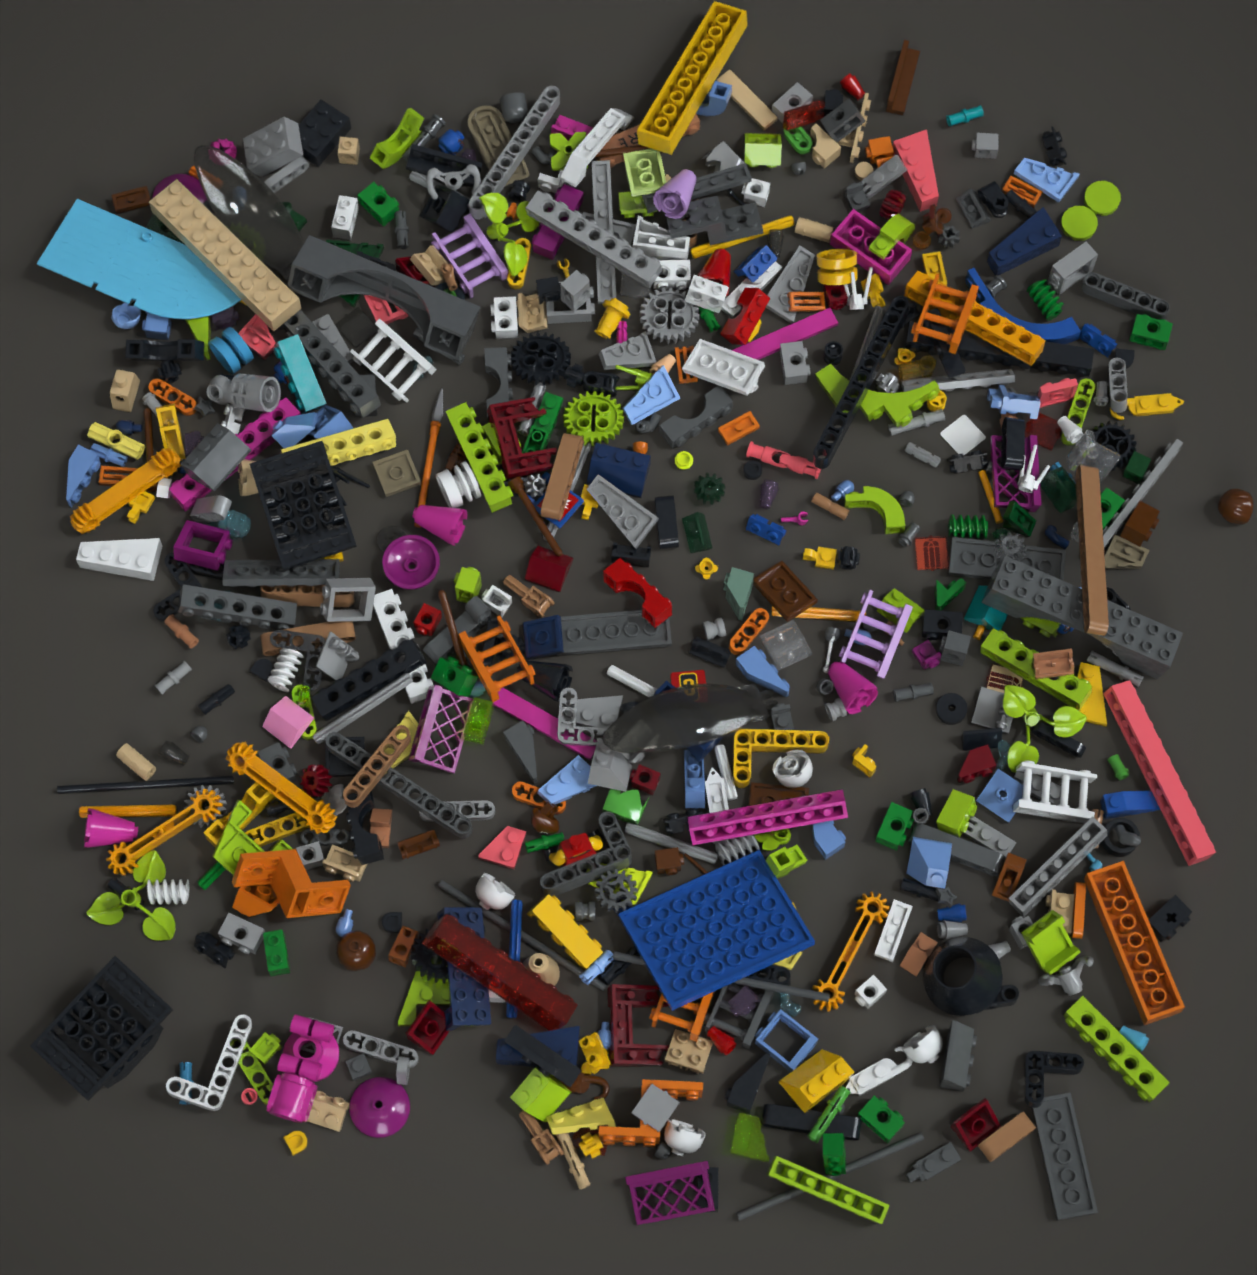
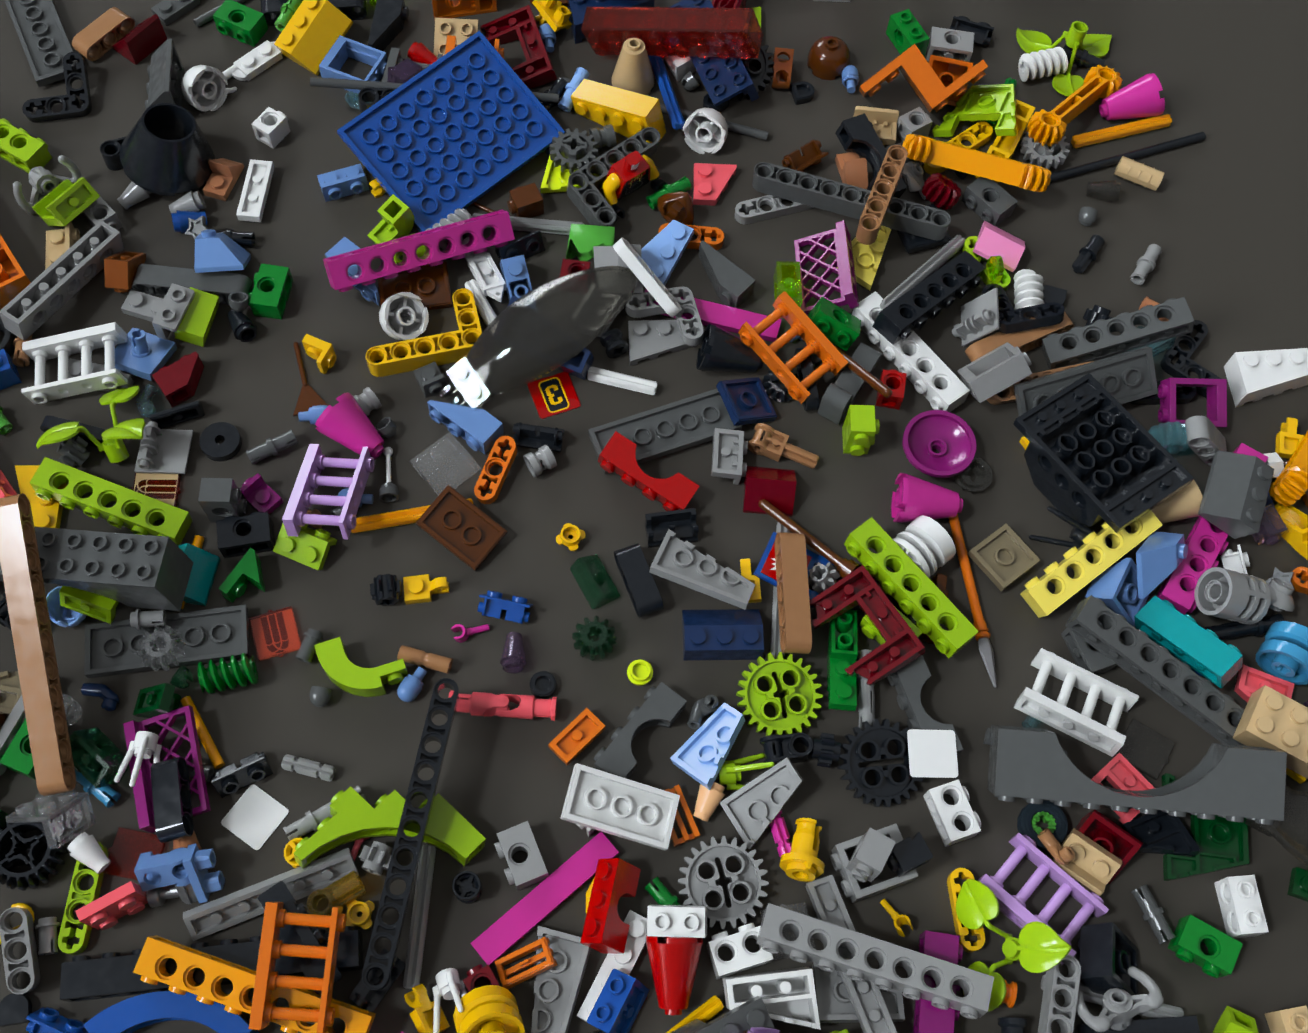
camera: 160 degrees right, 5 degrees down
(330, 331) = (1168, 720): light grey plate -> none
(497, 600) = (818, 429): white window -> none
(506, 350) = (932, 753): none -> white sticker
(531, 314) = (923, 819): tan bracket -> none
(572, 595) = (728, 454): none -> light grey bracket
(583, 722) = (647, 277): none -> white beam
(640, 447) = (703, 671): orange hinge -> none
(738, 590) = (520, 505): sand green slope -> none
(821, 921) = (343, 182): none -> medium blue bracket
(851, 949) = (285, 201): light orange arm -> none
(874, 710) = (312, 414): none -> medium blue cylinder
(879, 730) = (307, 396): none -> reddish brown piece
(972, 814) = (172, 310): none -> light grey bracket
(1053, 663) = (83, 496): nougat hinge -> none
(1078, 910) = (37, 249): orange beam -> none

